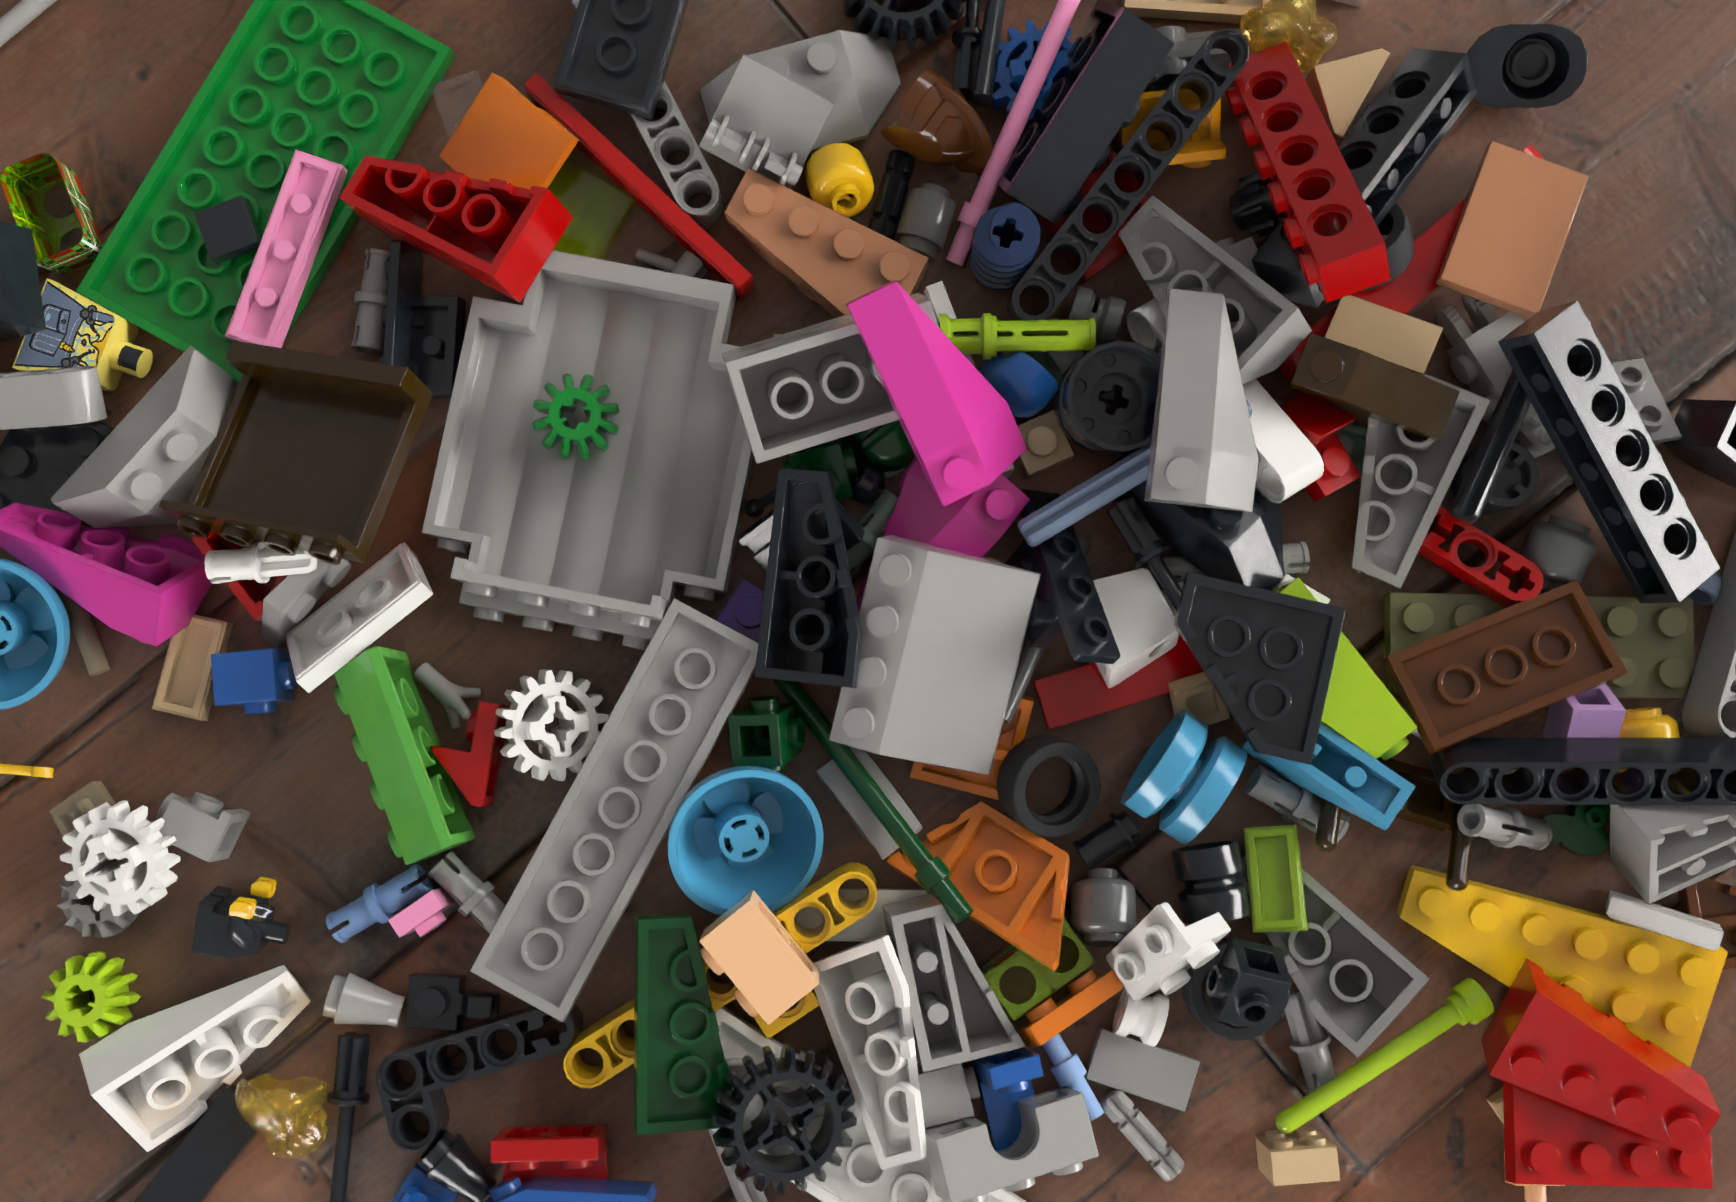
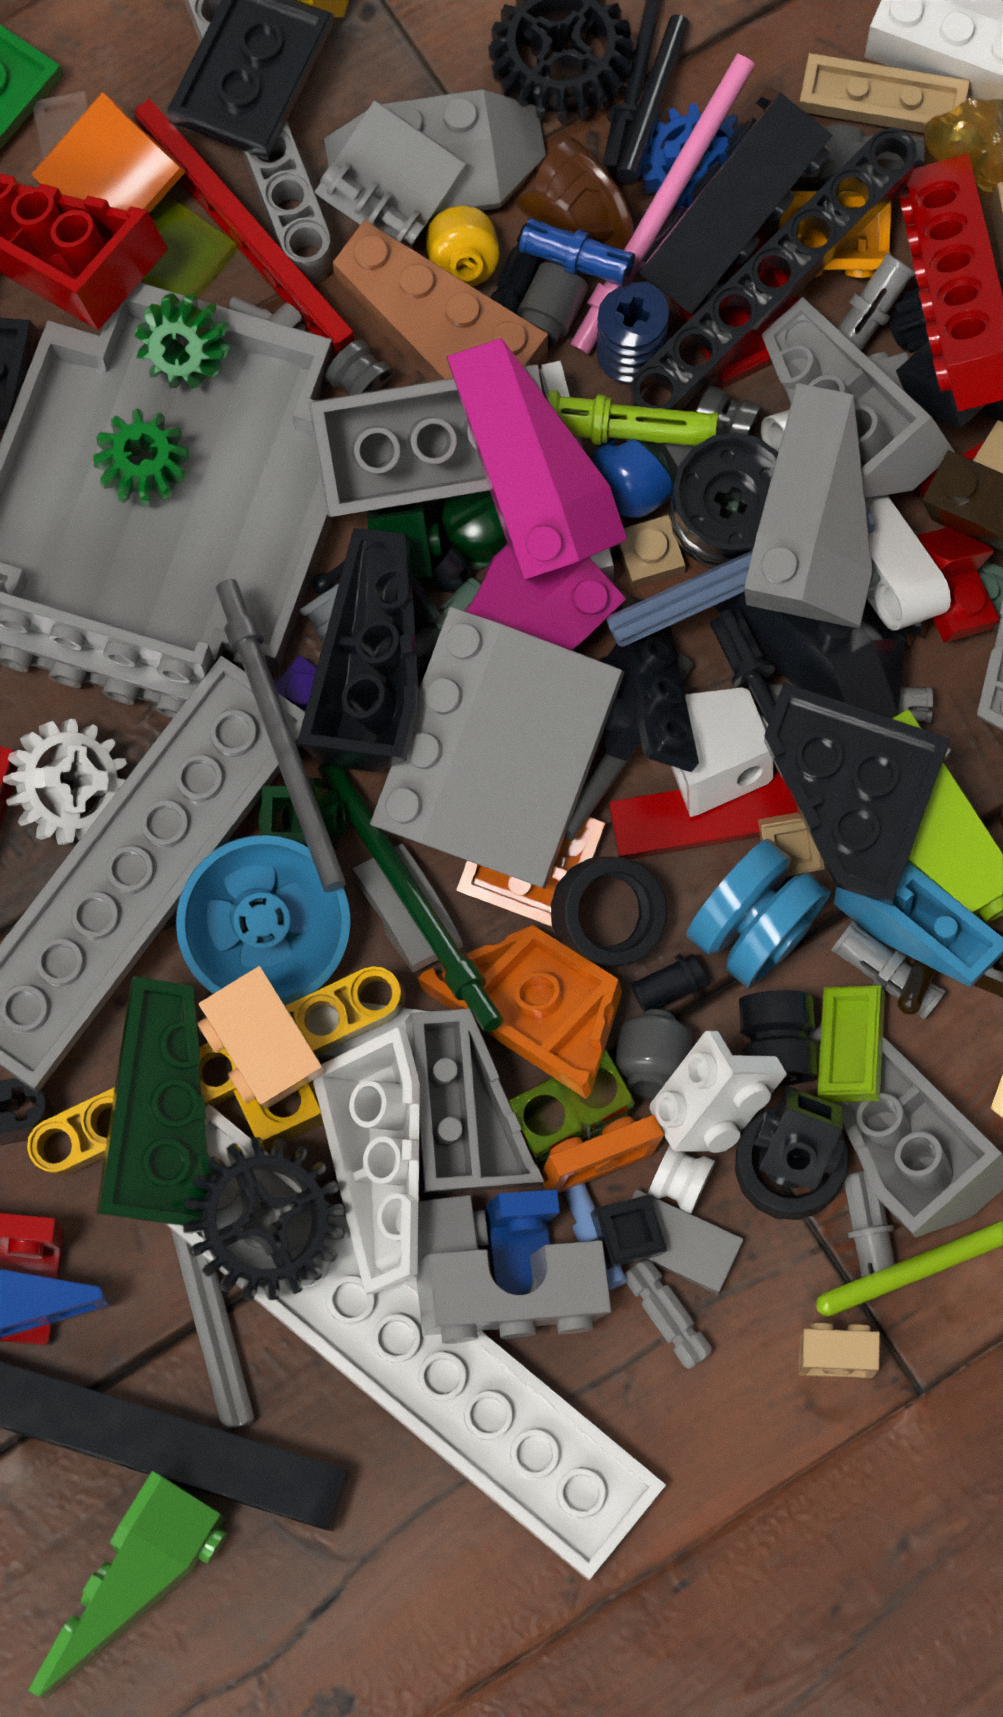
camera: 10 degrees right, 10 degrees down
(579, 297) = (160, 336): none -> green gear
(694, 580) = (245, 638): none -> flat silver bar
(762, 310) = (358, 370): none -> dark grey wheel
(944, 176) = (577, 252): none -> blue pin
(1102, 1073) = (628, 1231): none -> black tile
(1216, 189) = (892, 276): none -> light grey pin

